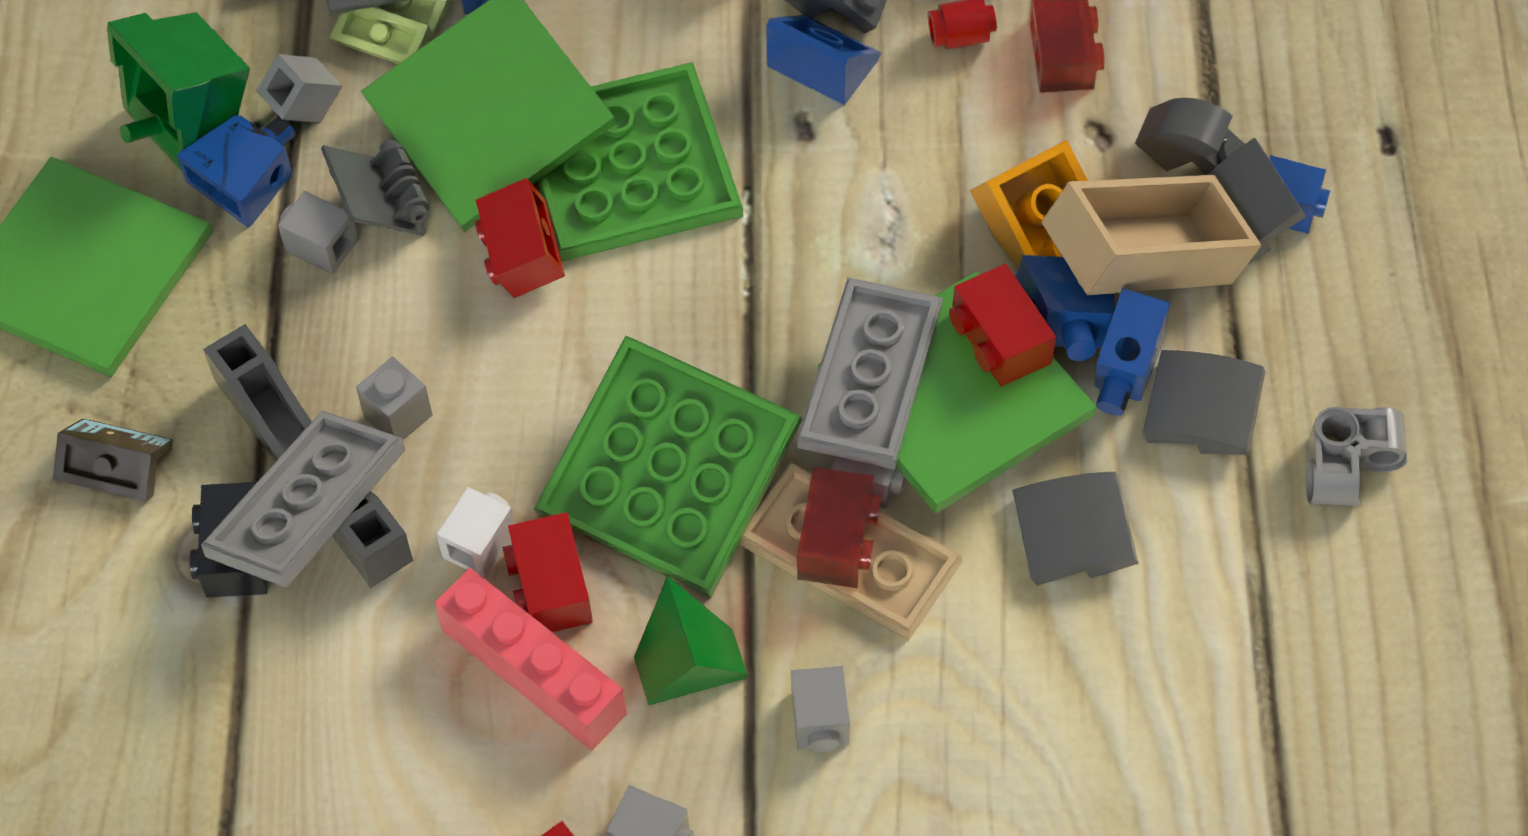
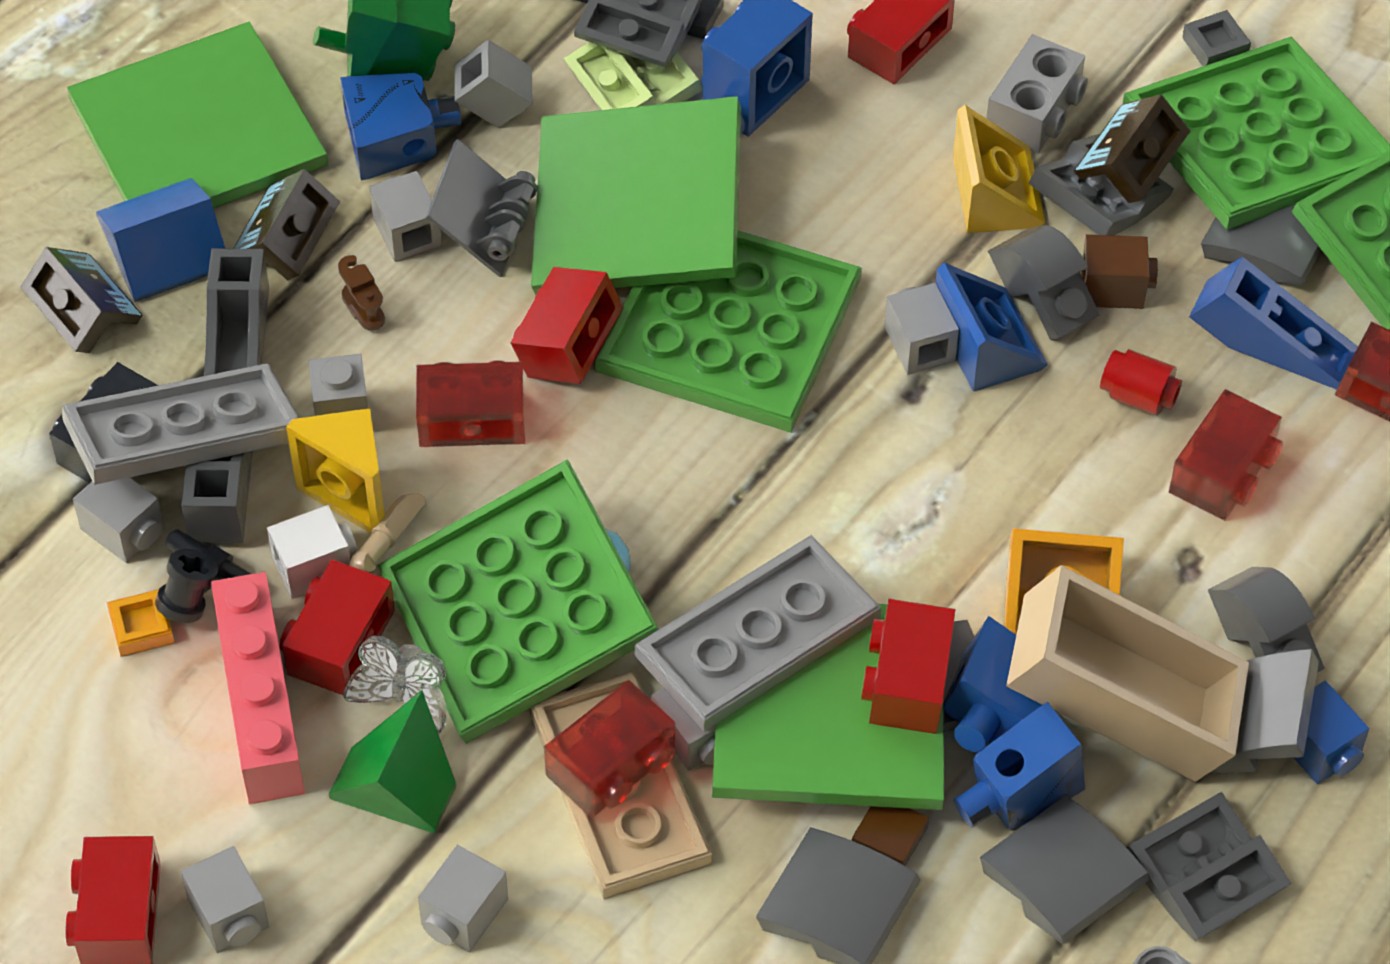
camera: 35 degrees right, 5 degrees down
(139, 366) = (162, 237): none -> blue slope
(224, 295) = (289, 222): none -> dark brown panel
(305, 605) = (119, 516): none -> light grey brick
(344, 314) = (361, 293): none -> reddish brown piece
(388, 673) = (139, 623): none -> light orange tile
(409, 604) = (190, 576): none -> black piece
(455, 450) = (339, 464): none -> yellow slope
(497, 343) = (470, 404): none -> clear red brick
(520, 482) = (387, 531): none -> tan piece
(630, 576) = (398, 674): none -> clear animal
(776, 79) = (921, 328): none -> light grey brick
(1068, 456) = (892, 831): none -> reddish brown tile
(1293, 336) = (1208, 867): none -> dark grey slope

